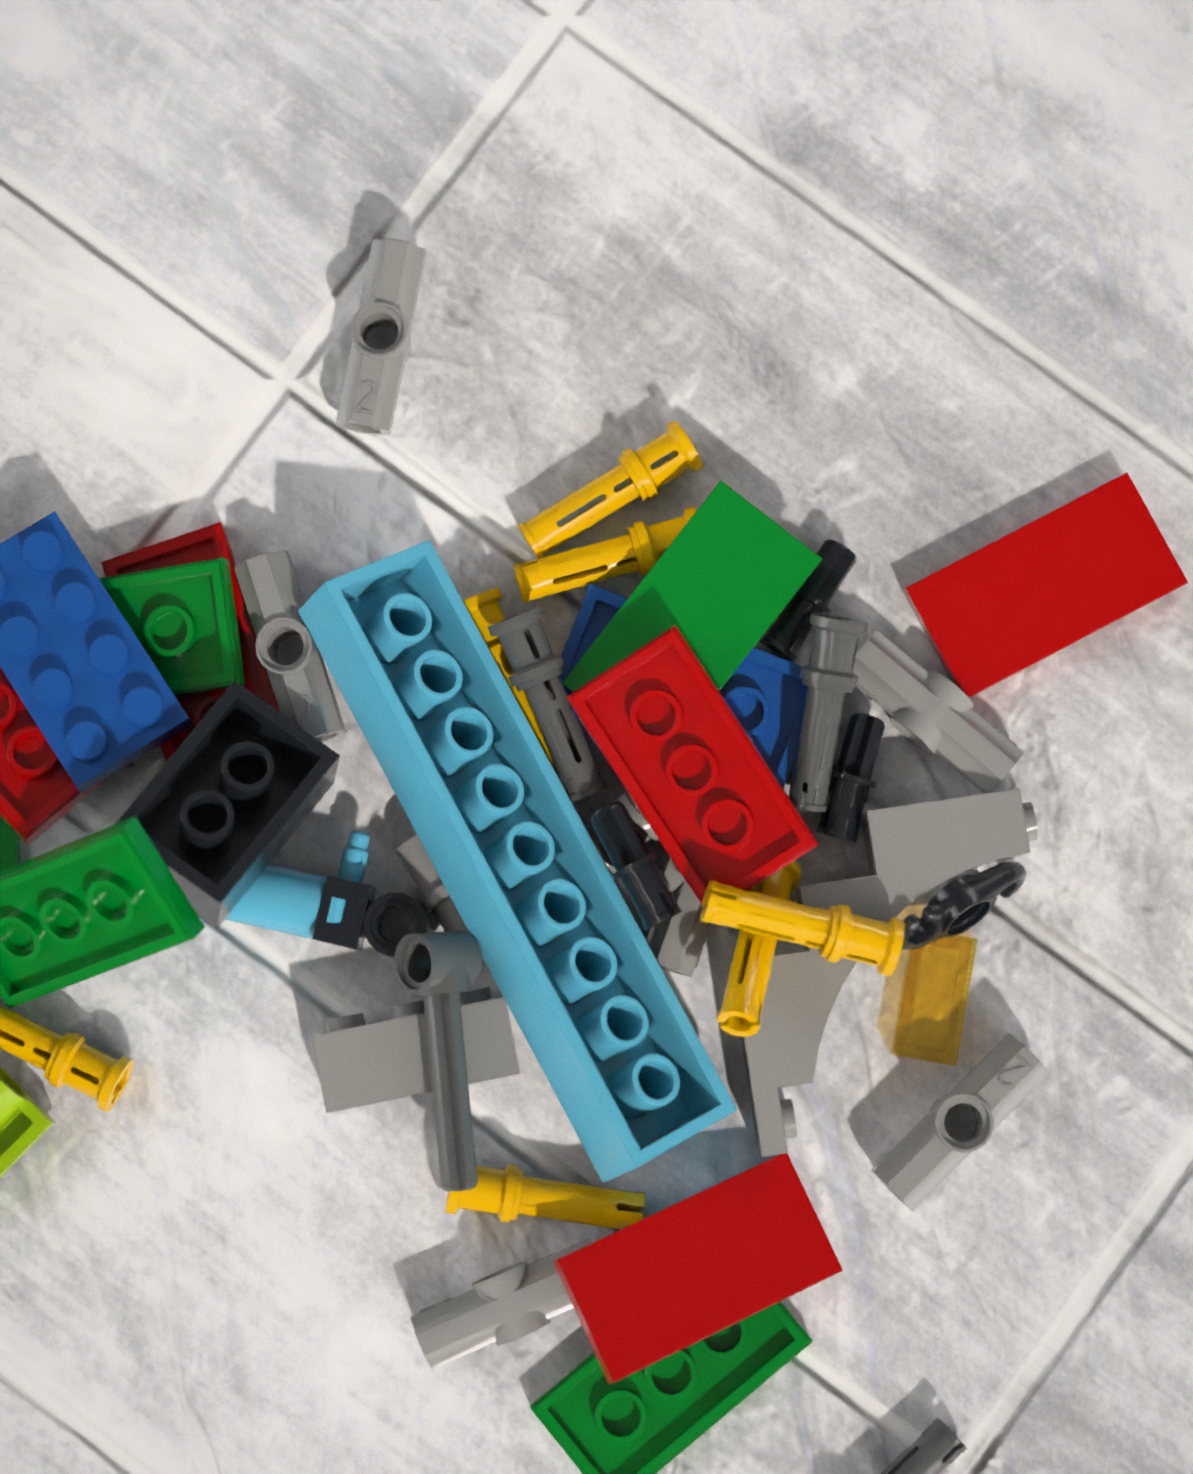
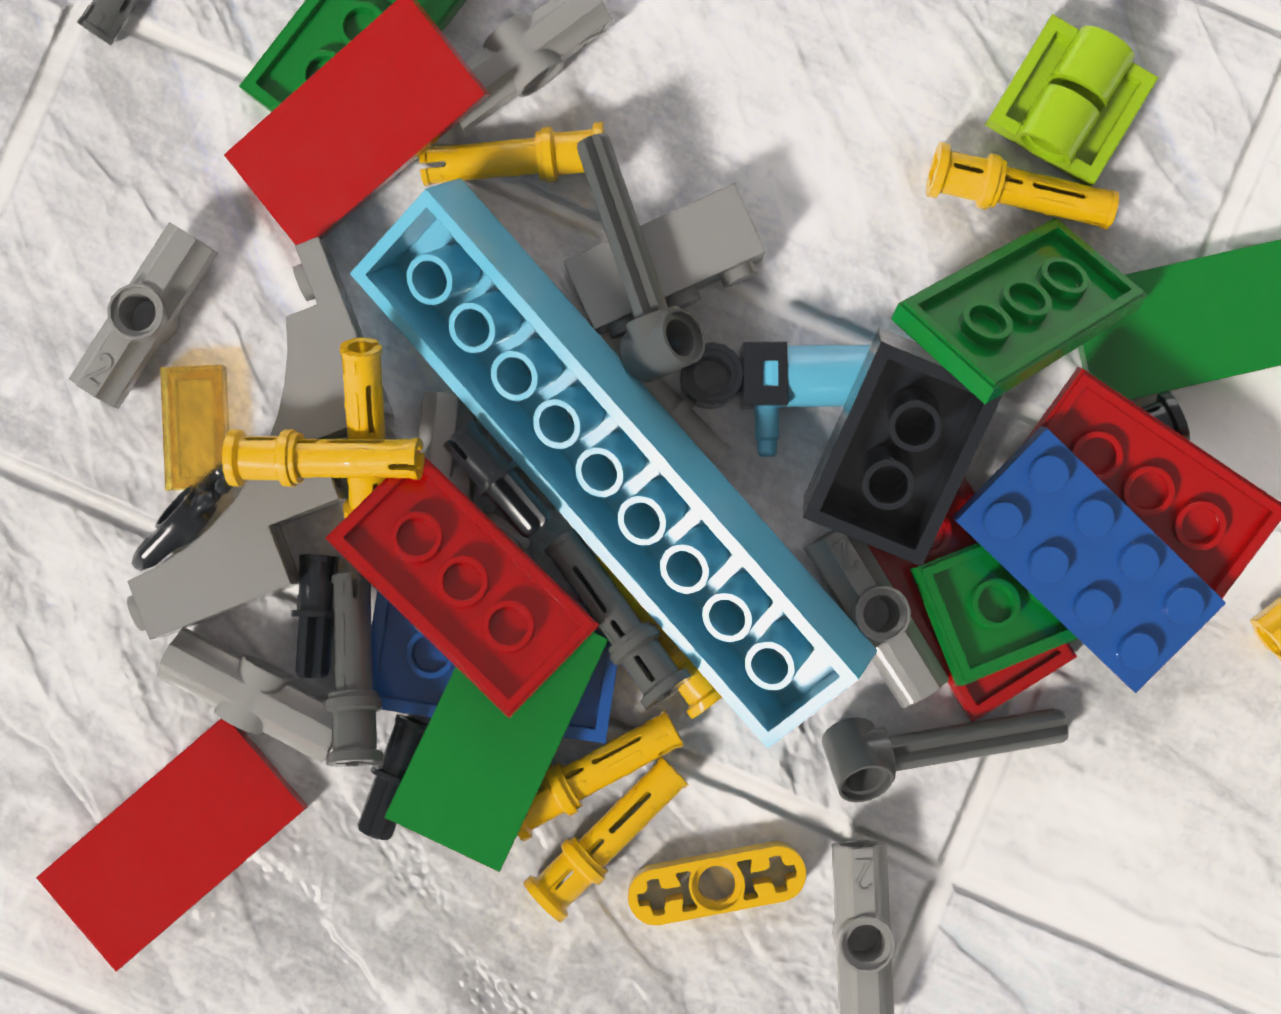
camera: 170 degrees right, 5 degrees up
(334, 509) = (867, 758): none -> dark grey axle
(465, 435) = (704, 906): none -> yellow beam

